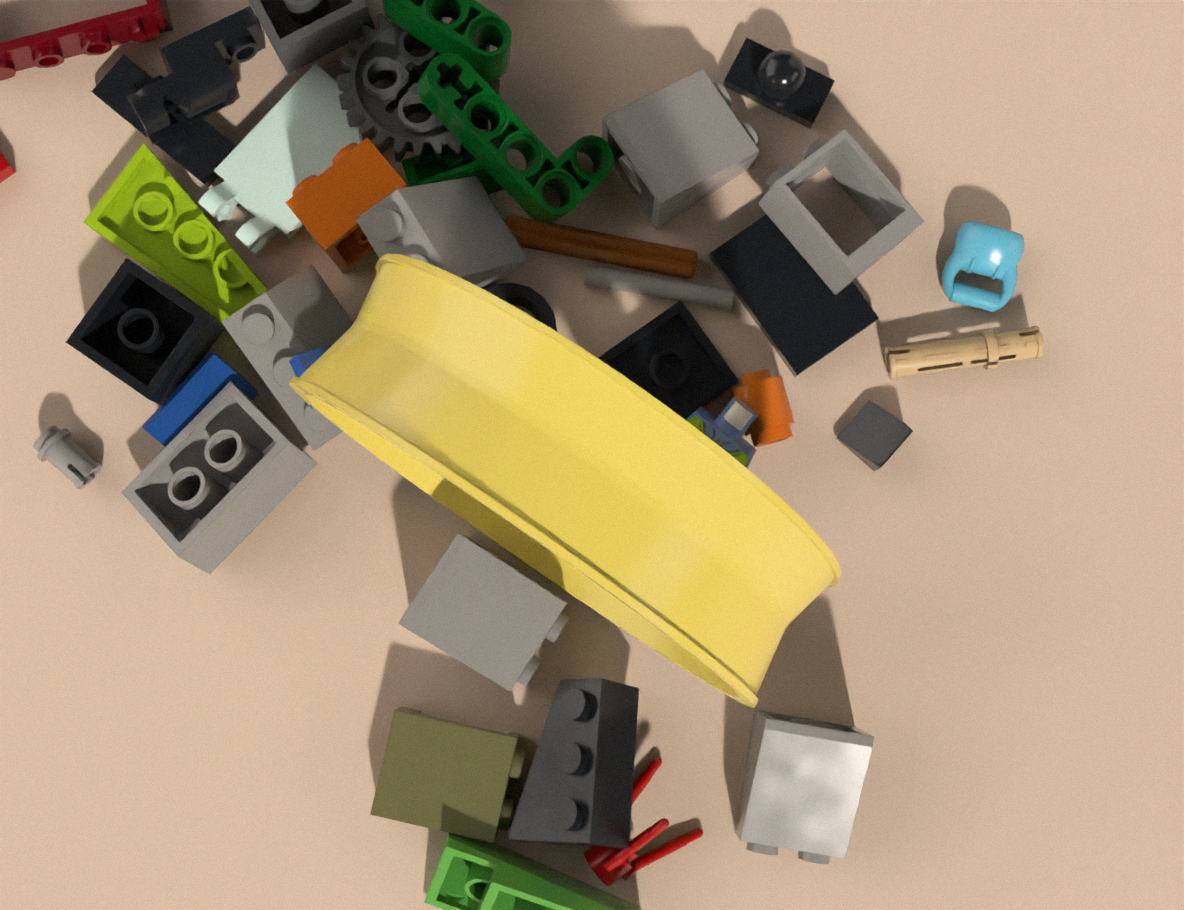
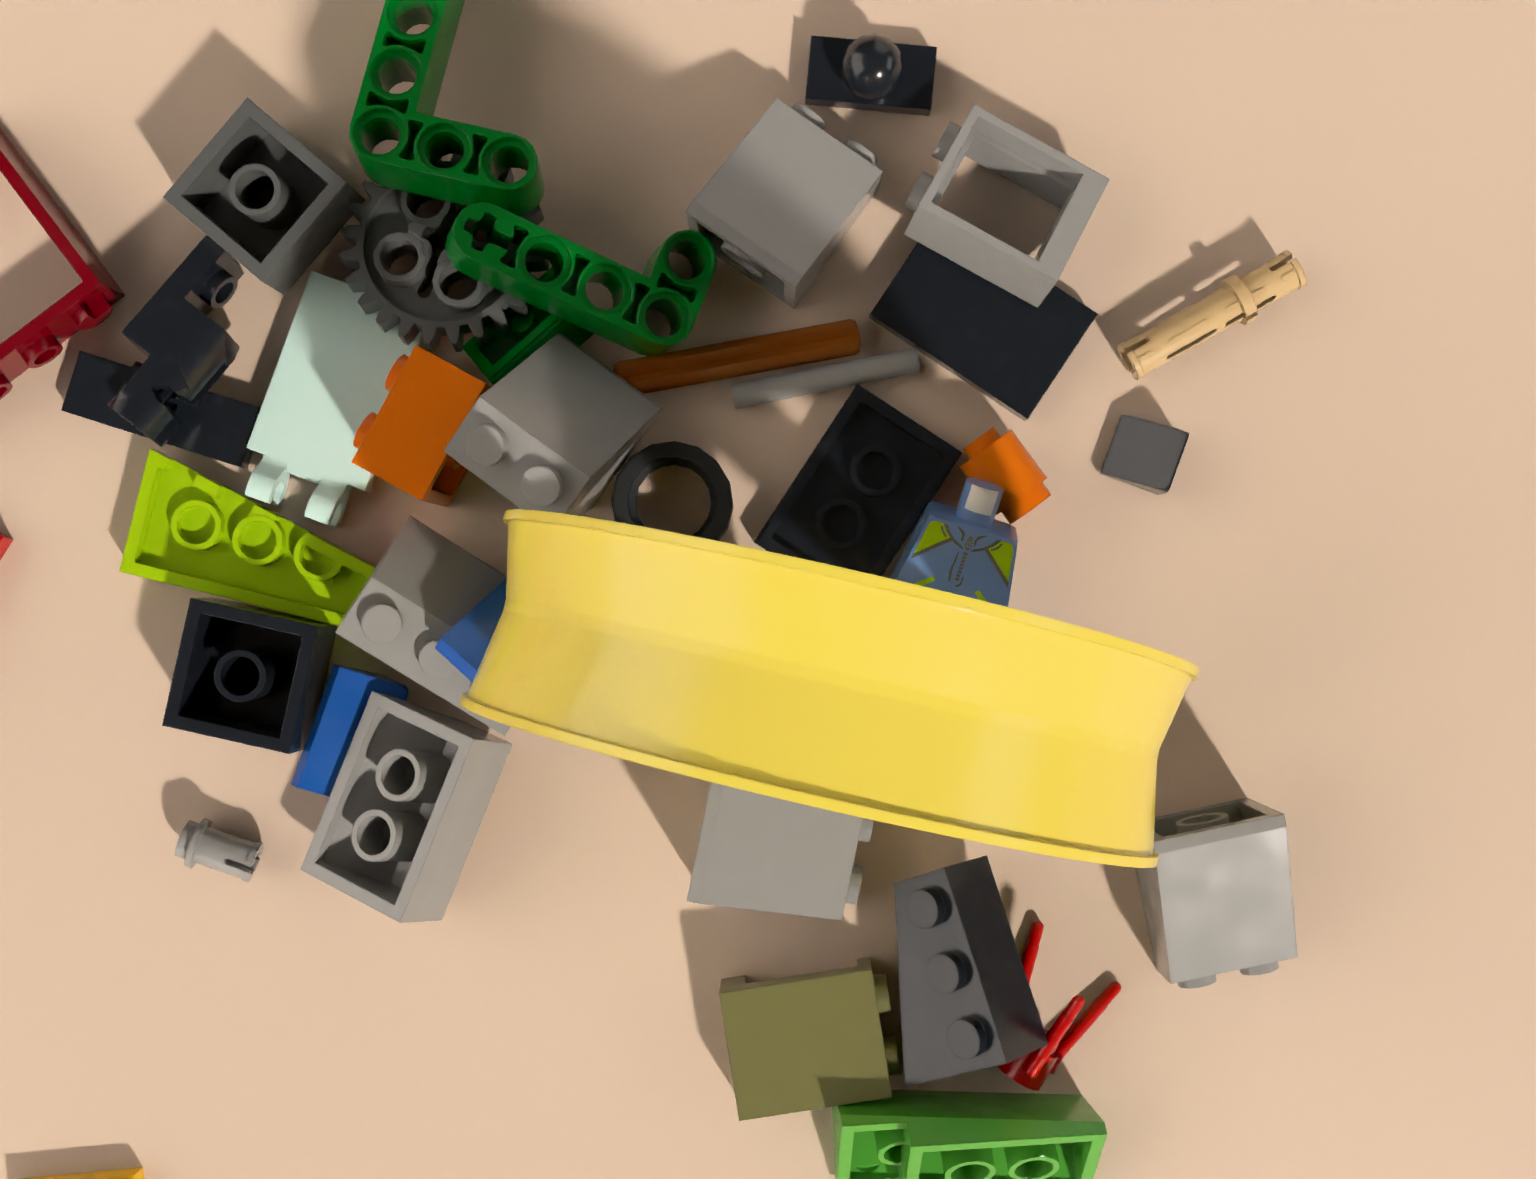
camera: 25 degrees left, 5 degrees up
(986, 252) = (1194, 186): medium azure piece -> none

